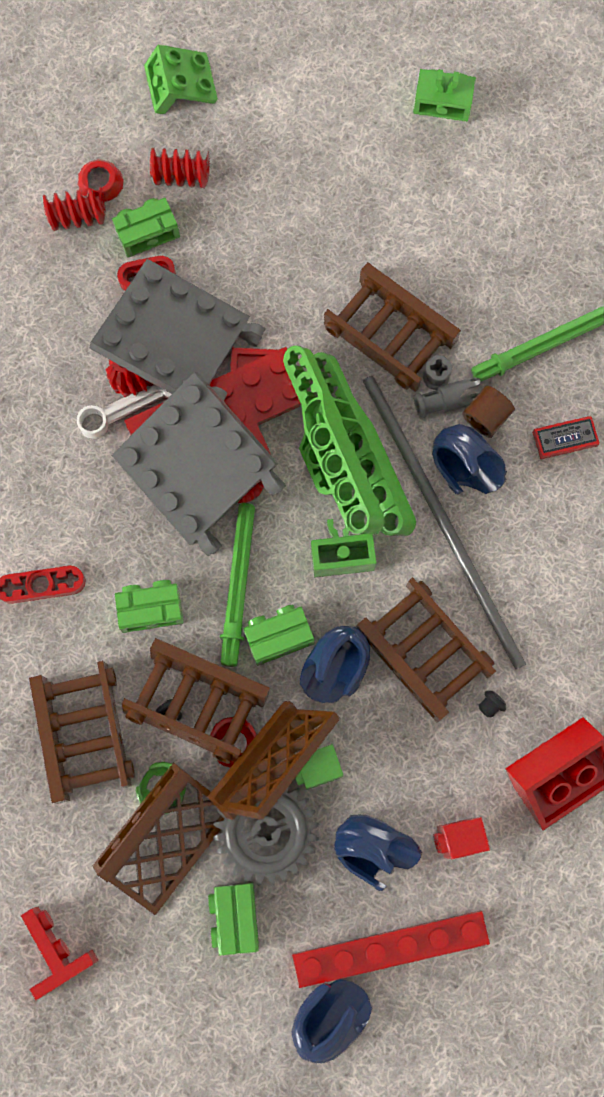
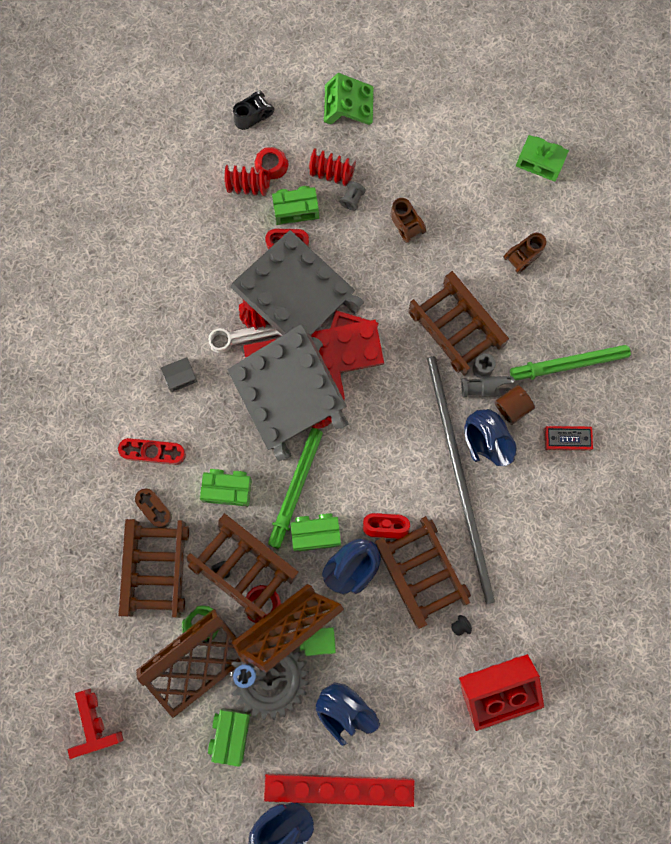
camera: 15 degrees right, 0 degrees up
(50, 477) = (179, 374): none -> dark grey piece
(56, 662) = (157, 504): none -> reddish brown beam
(61, 116) = (255, 109): none -> black piece
(215, 197) = (351, 191): none -> dark grey bush
(225, 832) = (251, 680): none -> medium blue bush
(296, 216) = (409, 223): none -> reddish brown piece
(333, 451) = (390, 408): bright green beam -> none
(342, 554) = (378, 485): bright green brick -> none
(365, 602) = (386, 525): none -> red plate
(451, 220) = (523, 254): none -> reddish brown piece
(461, 838) = (412, 722): red brick -> none

